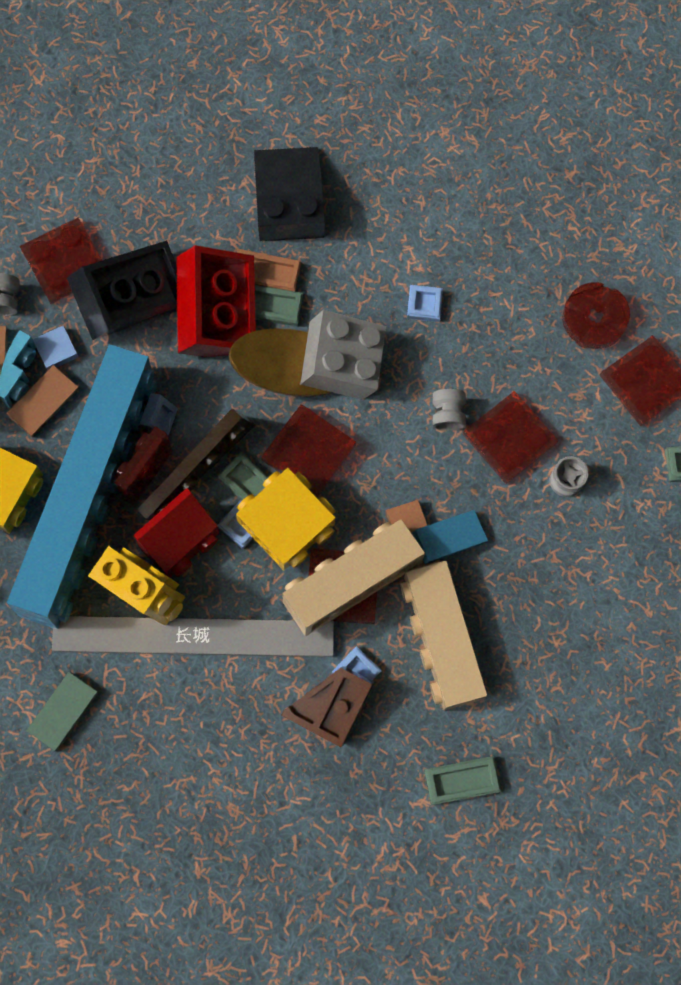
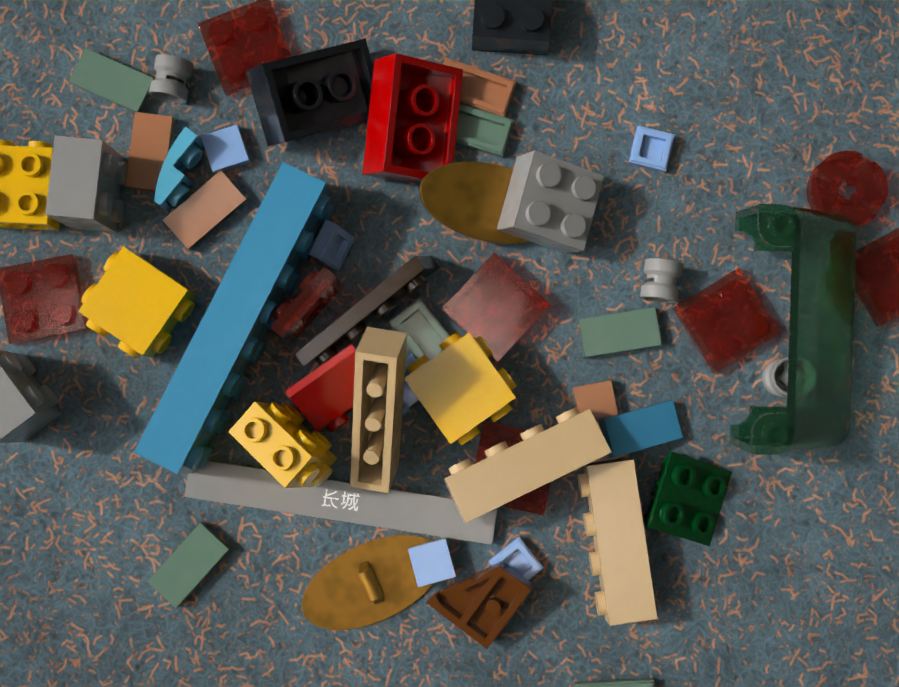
camera: 15 degrees right, 10 degrees up
(216, 543) = (377, 408): none -> tan brick
(229, 706) = (364, 584): none -> pearl gold shield
(281, 678) = (431, 562): none -> light blue tile
(419, 459) = (619, 332): none -> sand green tile
(500, 592) = (687, 498): none -> dark green hinge
(586, 429) = (818, 329): none -> clear green windscreen

